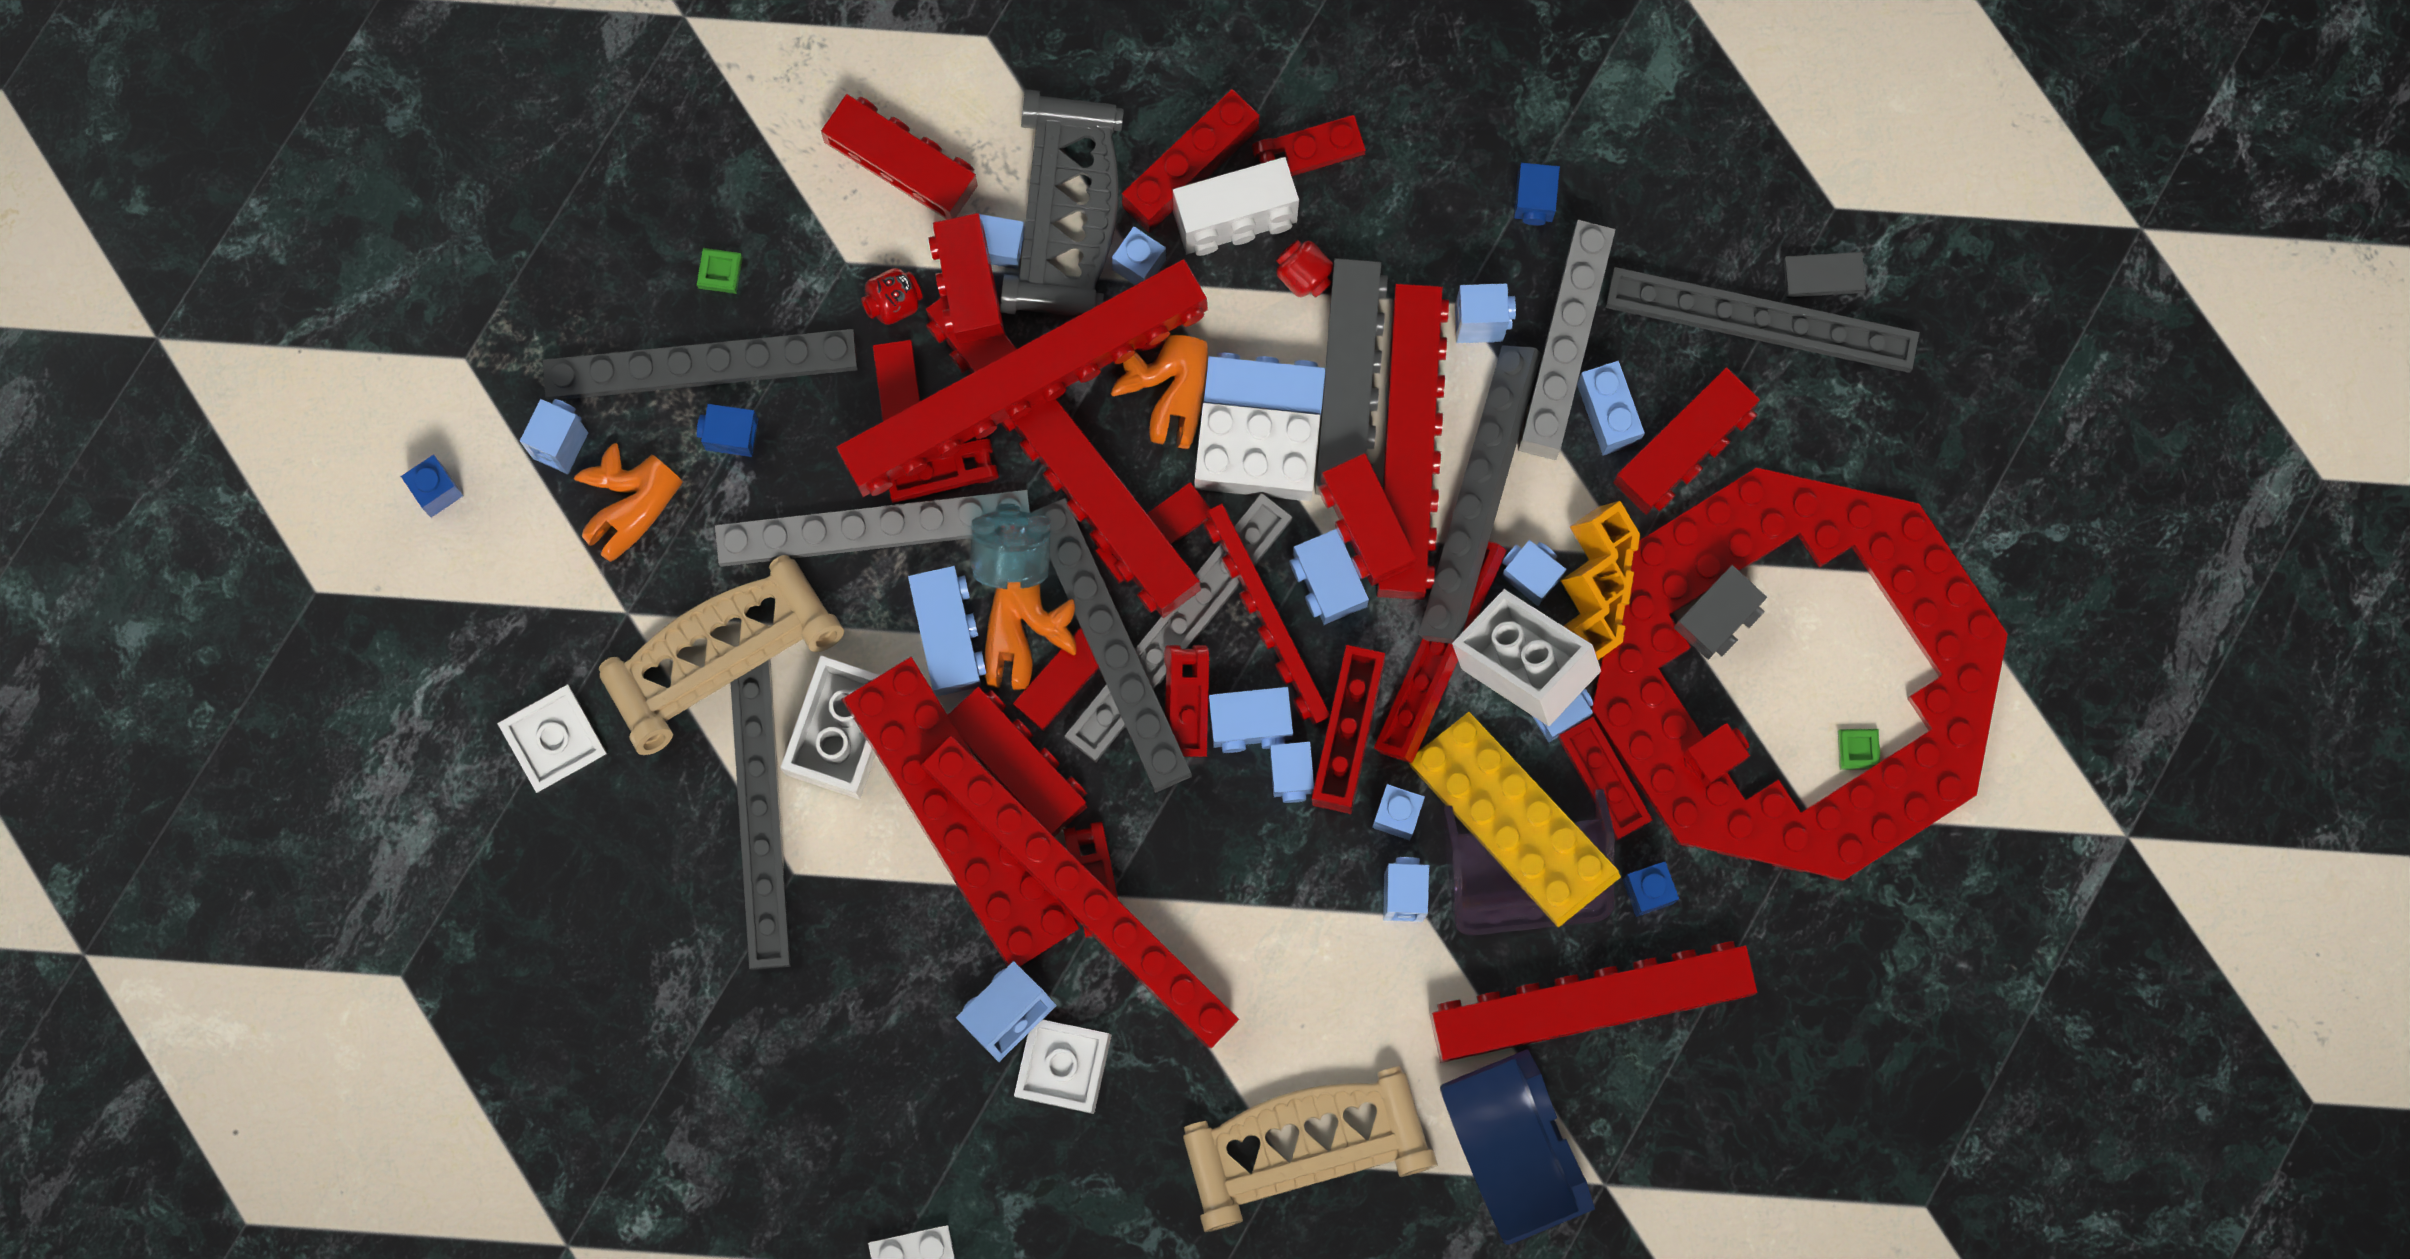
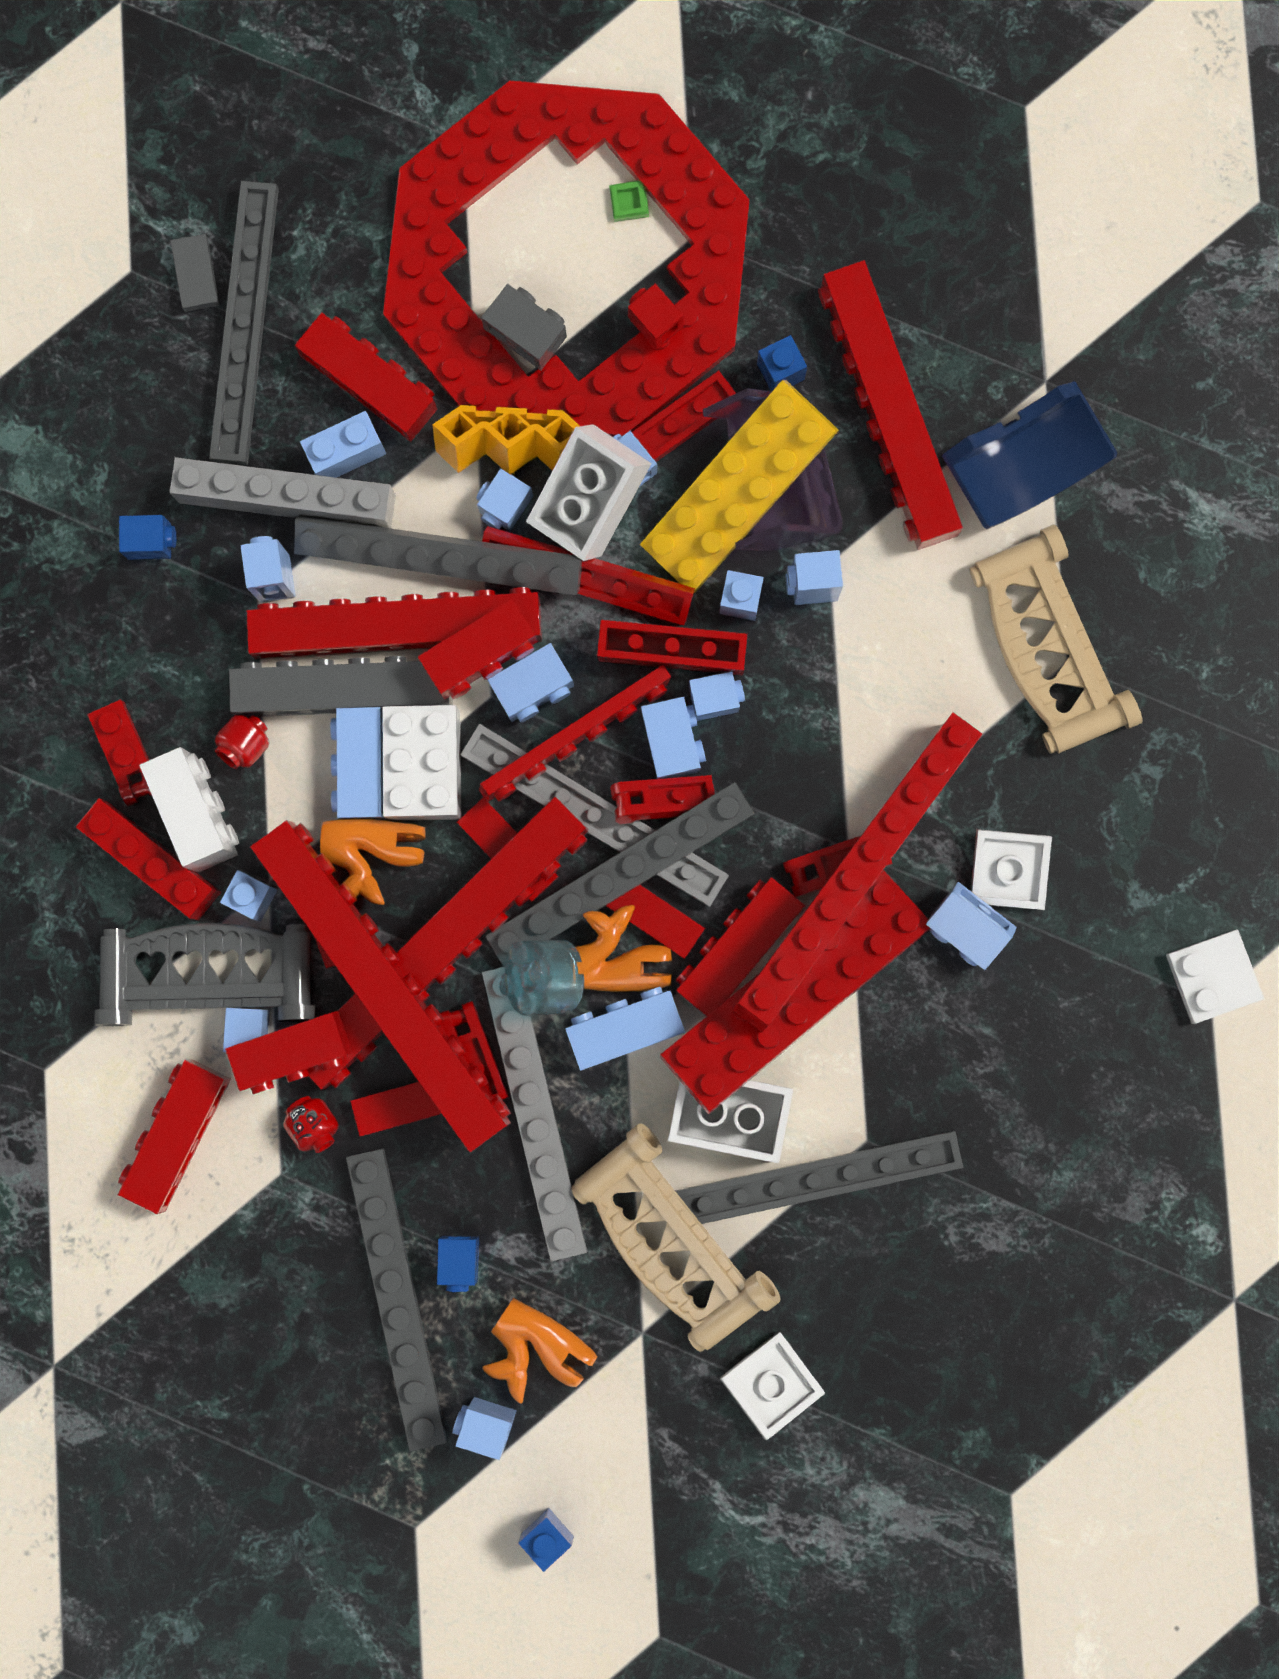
camera: 85 degrees left, 5 degrees up
(719, 270) = (302, 1293): bright green tile -> none

